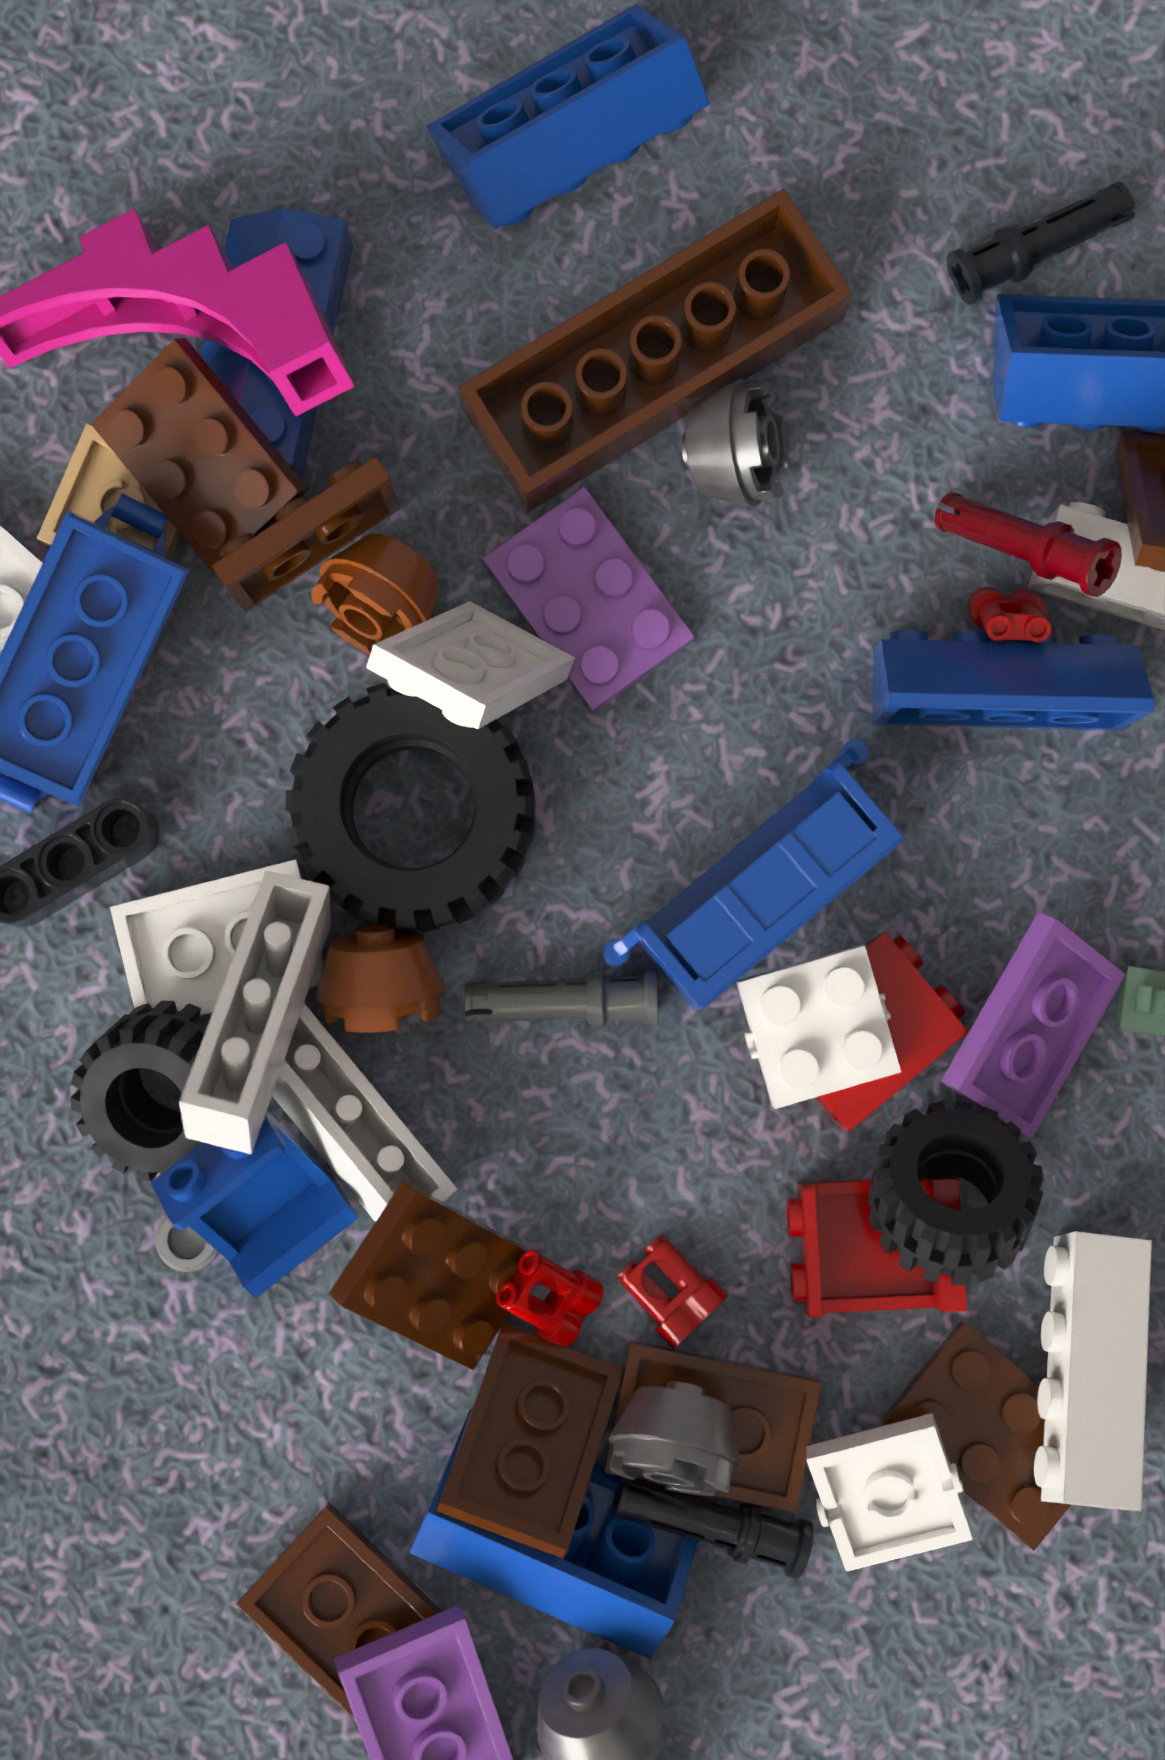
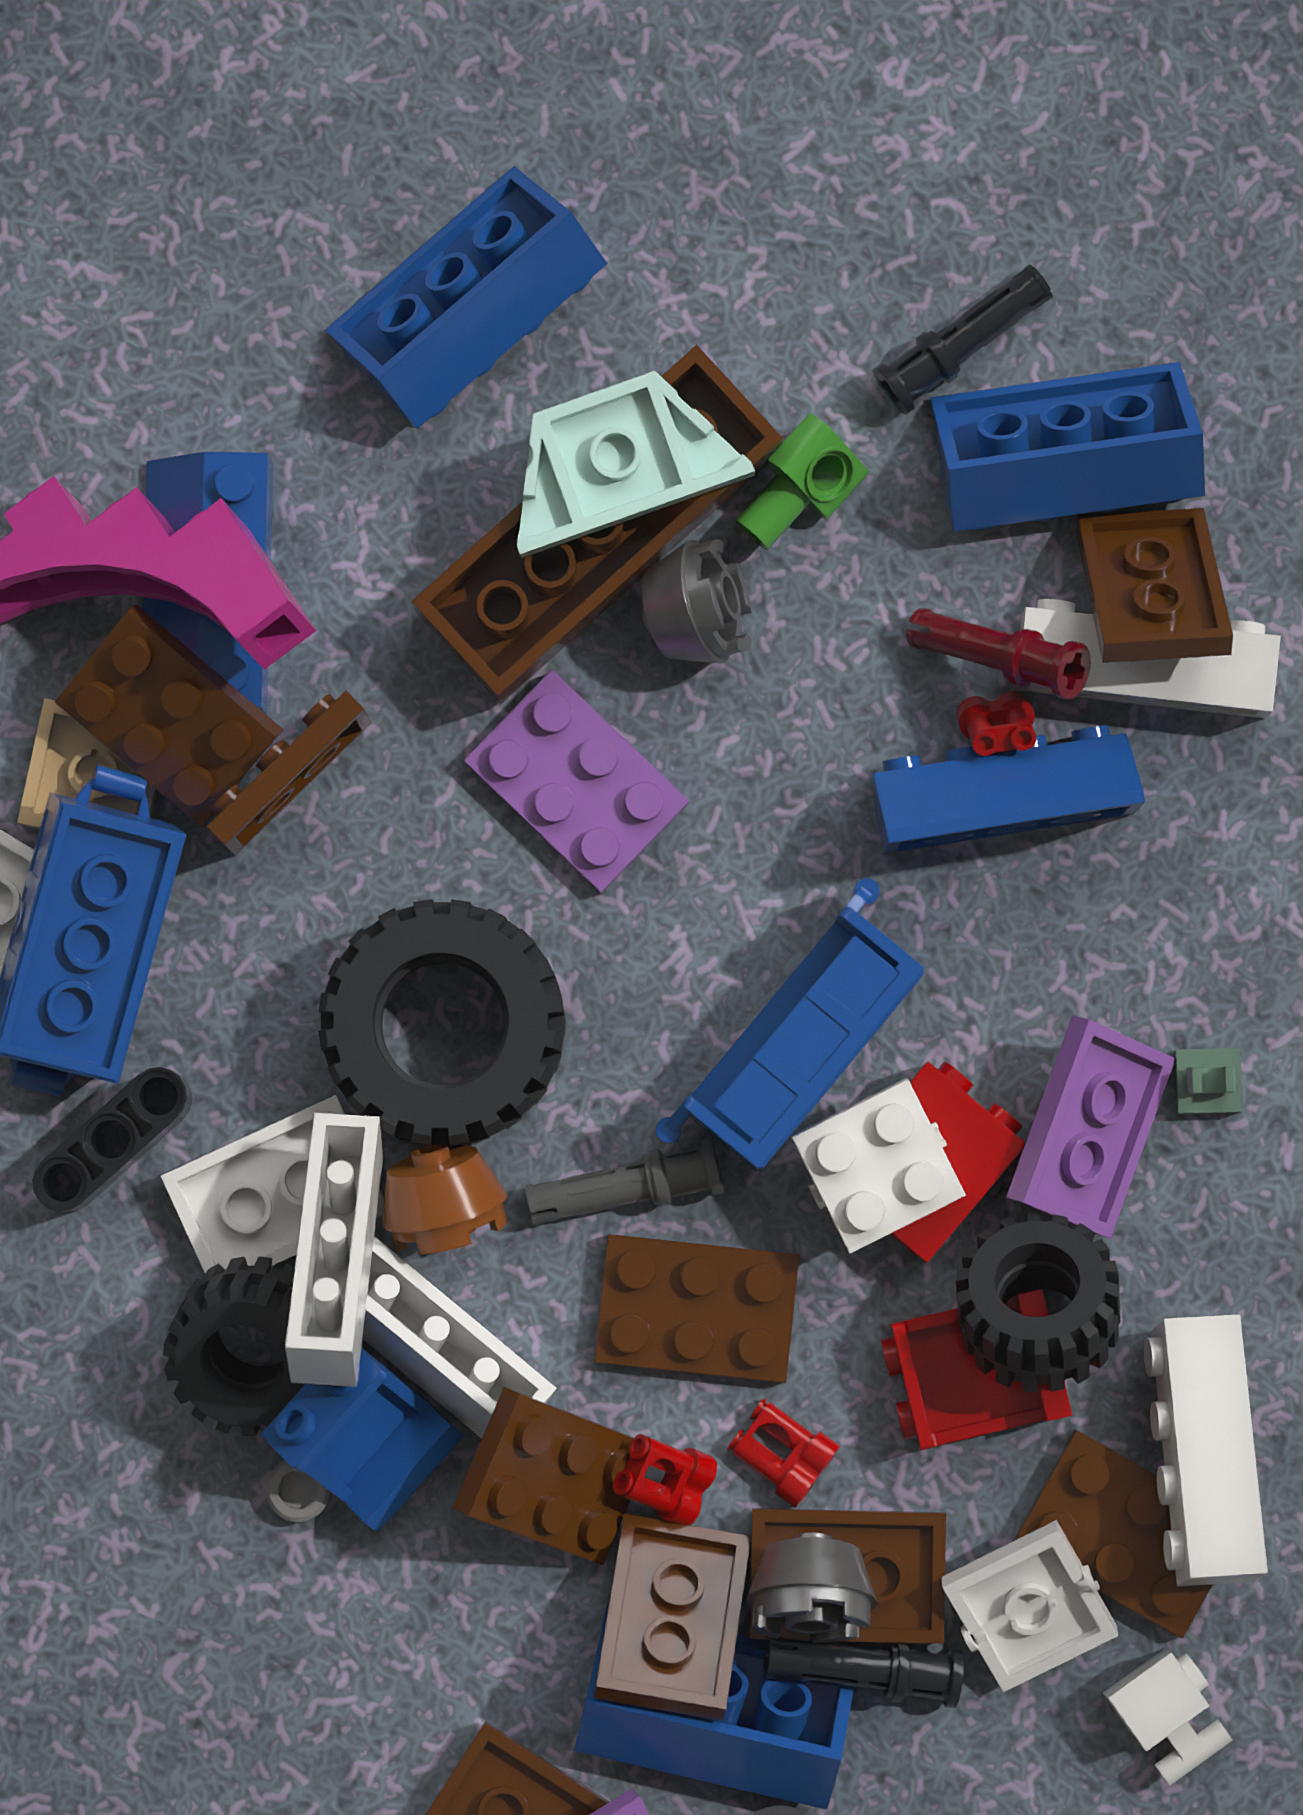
camera: 10 degrees left, 0 degrees up
(376, 590) = (370, 818): dark orange cone -> none
(470, 664) = (476, 873): white plate -> none
(612, 1133) = (697, 1308): none -> reddish brown plate
(687, 281) = (617, 460): none -> light aqua wing
(852, 348) = (799, 485): none -> bright green piece
(999, 1614) = (1158, 1704): none -> white brick

